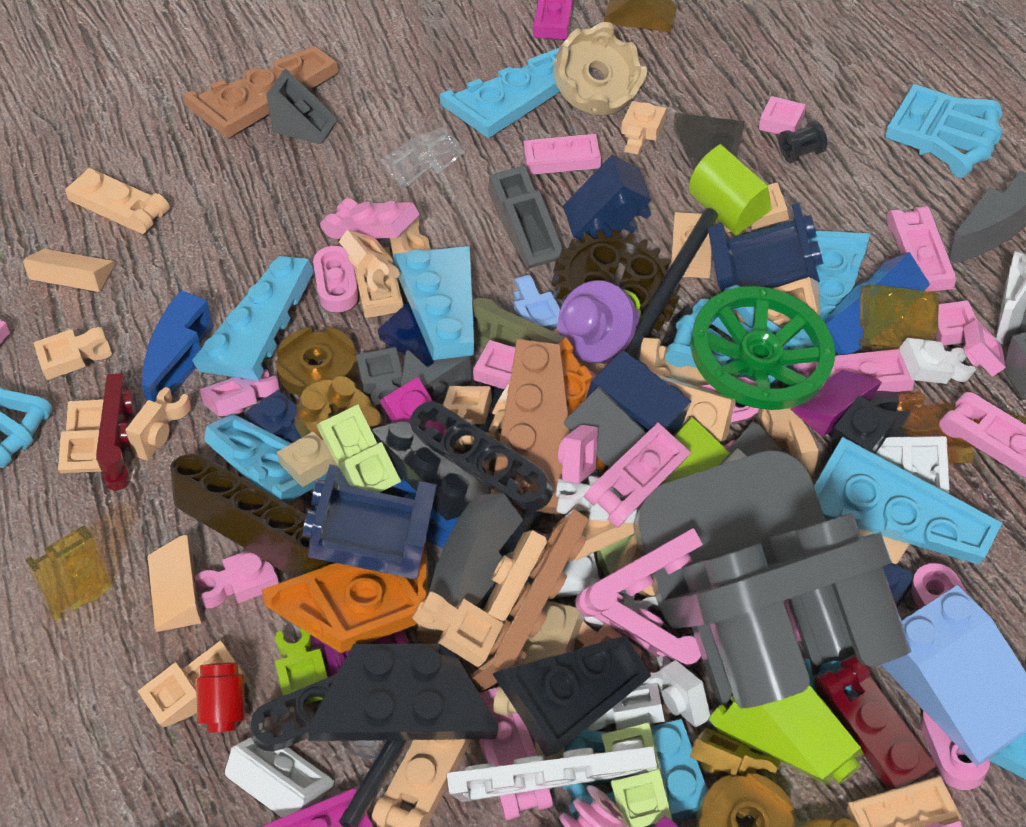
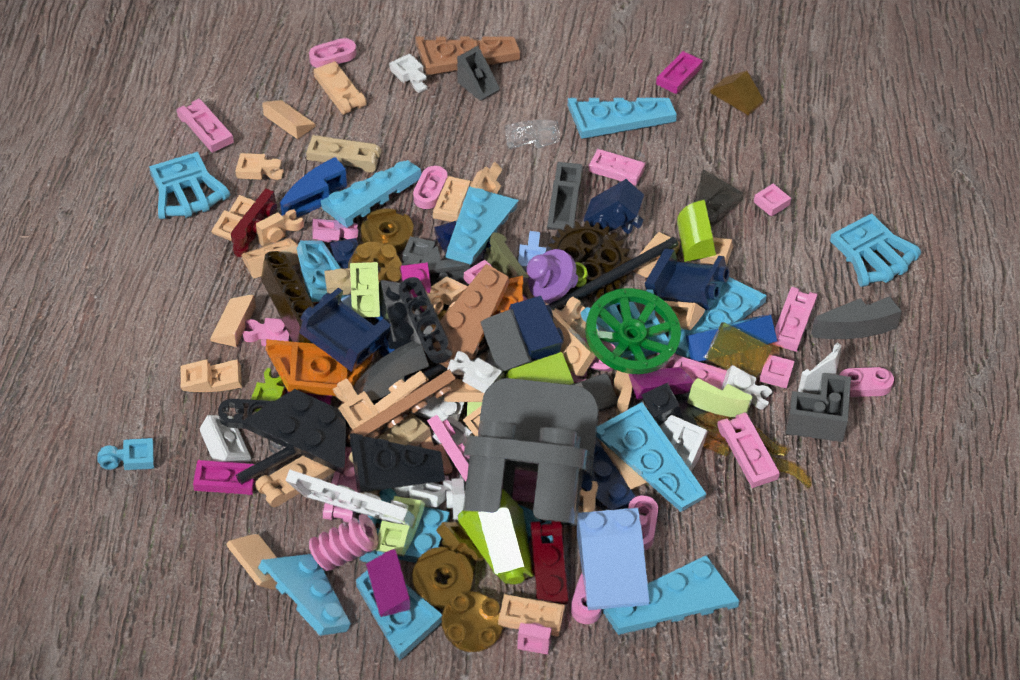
camera: 25 degrees right, 0 degrees up
(70, 573) = (180, 288): clear yellow plate -> none
(71, 161) = (337, 50): none -> bright pink plate
(153, 479) = (255, 258): none -> light nougat slope
(196, 276) = (346, 151): none -> tan plate
(200, 138) = (410, 69): none -> white plate
(220, 696) = (217, 386): red brick -> none
(369, 256) = (453, 181): light nougat plate -> none
(371, 219) = (469, 159): bright pink plate -> none
(578, 453) = (477, 342): bright pink plate -> none
(599, 50) = (684, 111): tan plate -> none
(637, 474) = (498, 365): bright pink plate -> none
(637, 575) = (460, 419): bright pink plate -> none
(642, 123) = (681, 167): light nougat plate -> none
(803, 141) = (772, 221): black bush -> none
(915, 393) = (722, 402): none -> yellowish green slope
(983, 348) = (779, 392): bright pink plate -> none

